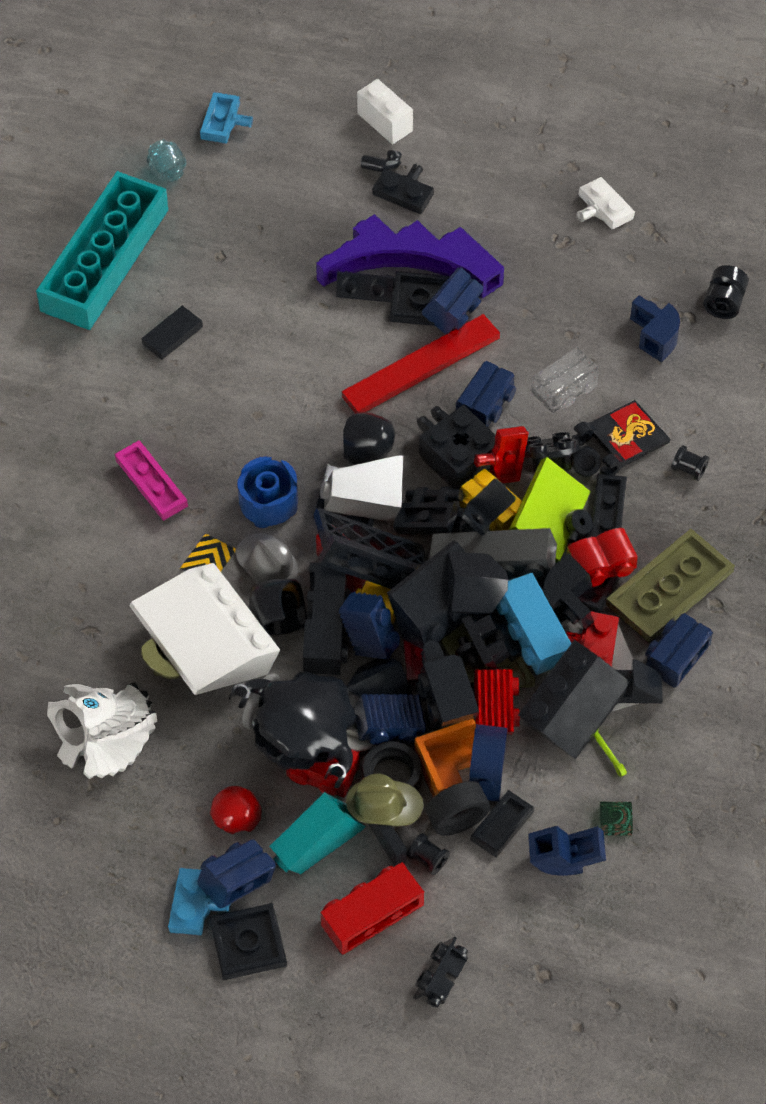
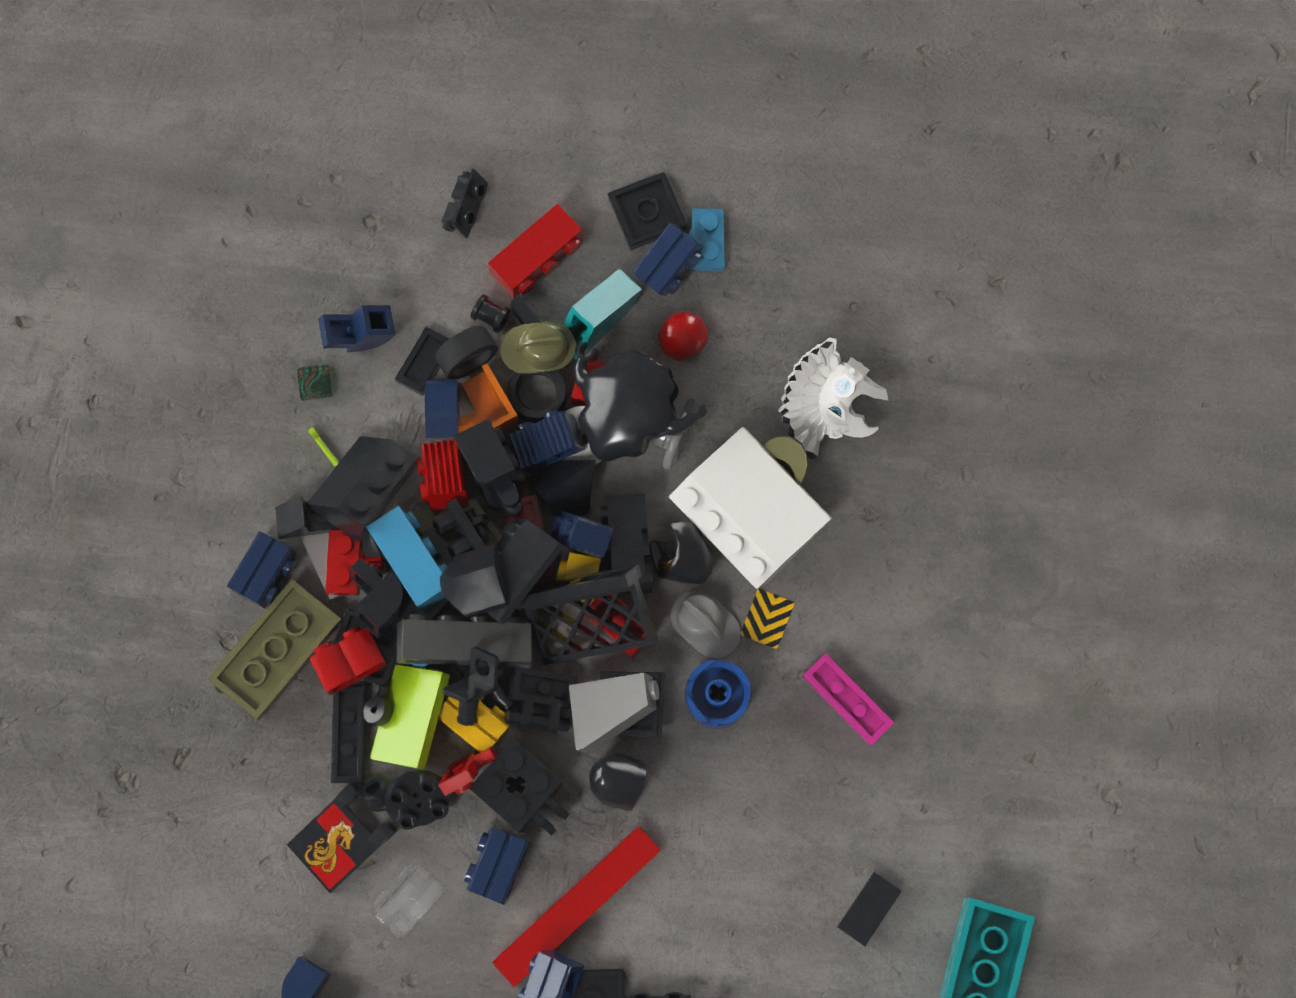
camera: 170 degrees right, 20 degrees up
(690, 463) = (261, 809): black bush -> none

